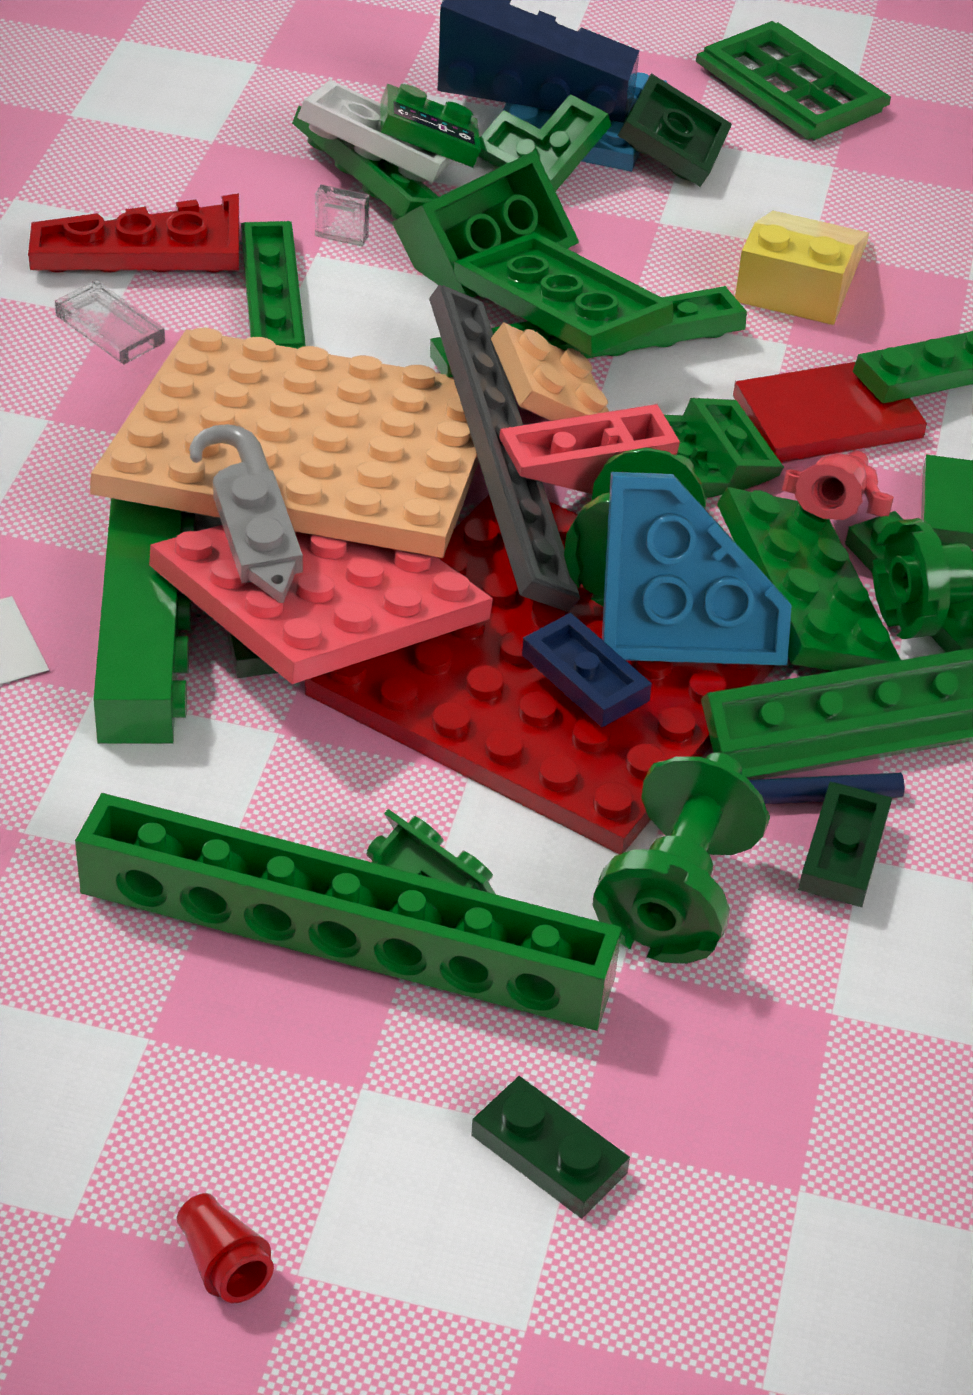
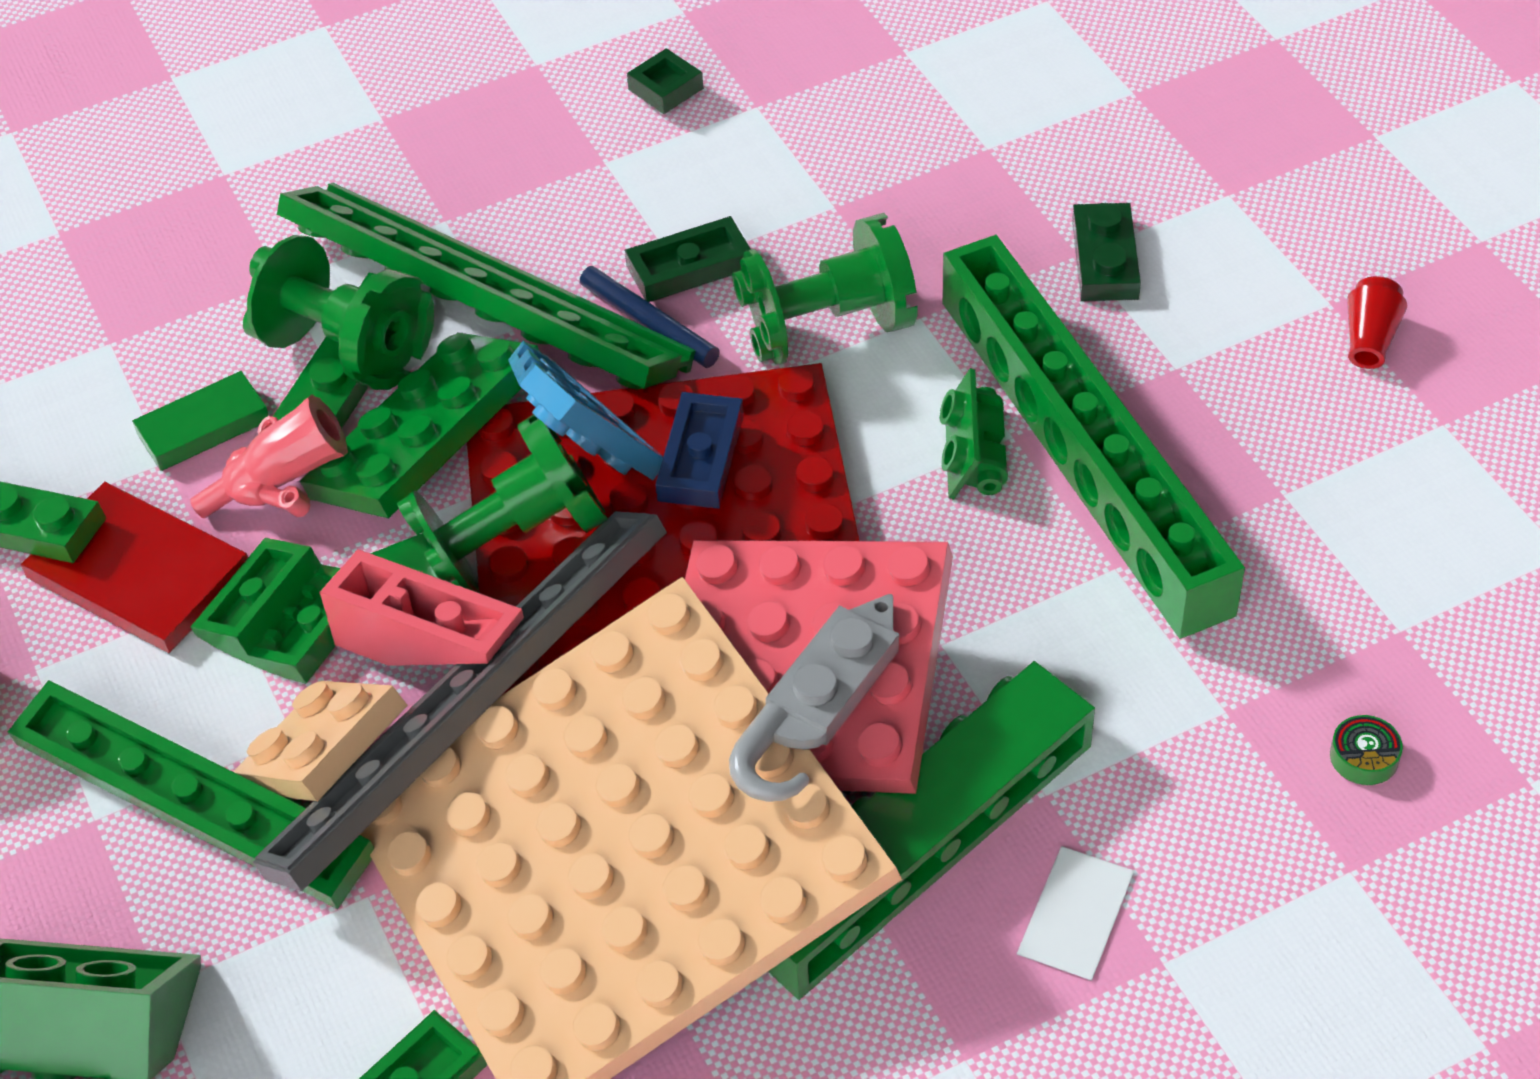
camera: 125 degrees left, 5 degrees up
(564, 293) = (164, 822): green plate -> none

